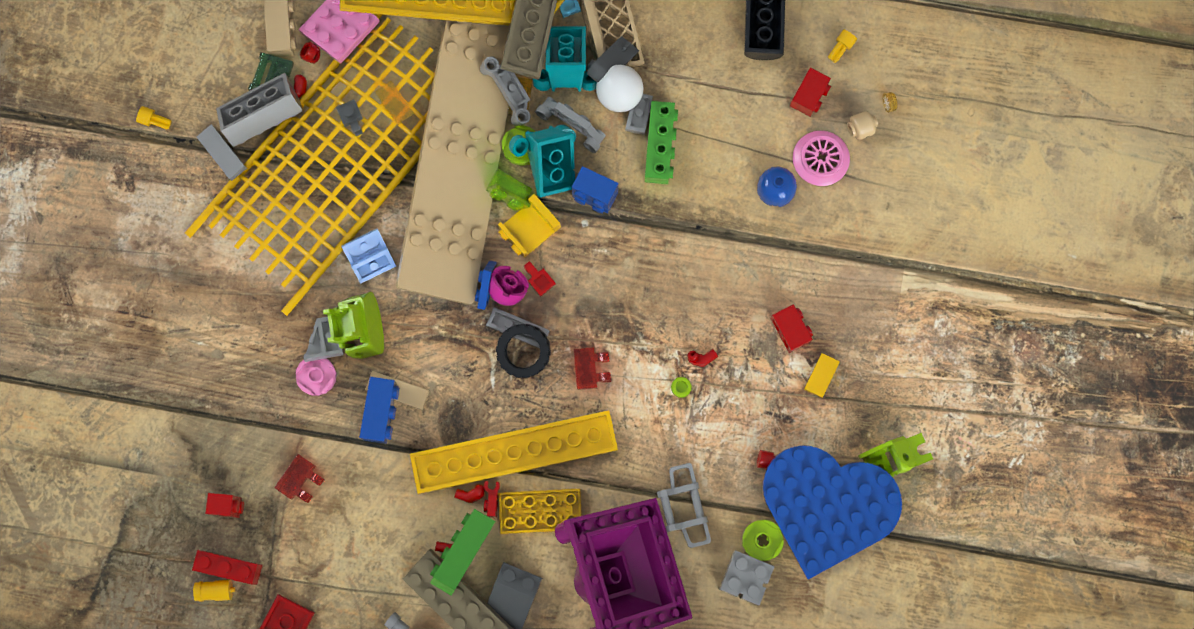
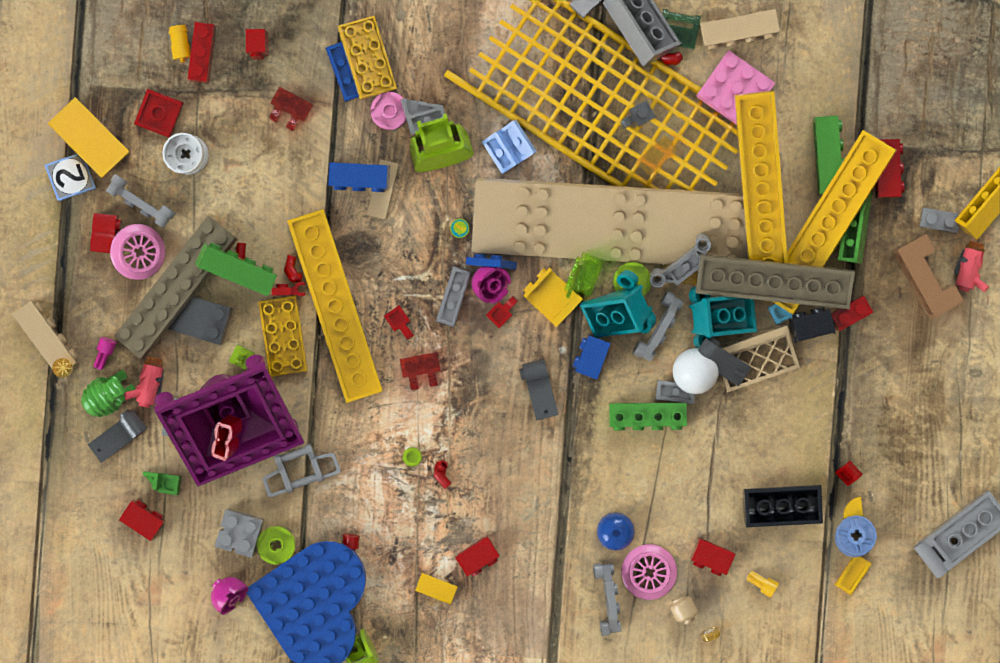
camera: 85 degrees right, 10 degrees up
(256, 392) = (367, 57): none -> yellow tile
(268, 418) = (342, 71): none -> blue tile
(309, 52) = (705, 64): red tile -> none
(320, 592) = (175, 154): none -> white wheel
(447, 314) = (459, 228): none -> lime tile
(504, 360) = (411, 301): black tyre -> none
(536, 387) = (397, 320): none -> red plate
(558, 558) = (240, 356): none -> lime tile
(622, 249) = (539, 389): none -> dark grey door
(642, 576) = (226, 437): none -> red brick
(810, 597) = (227, 593): none -> dark pink cylinder
(845, 196) = (610, 589): none -> light grey plate

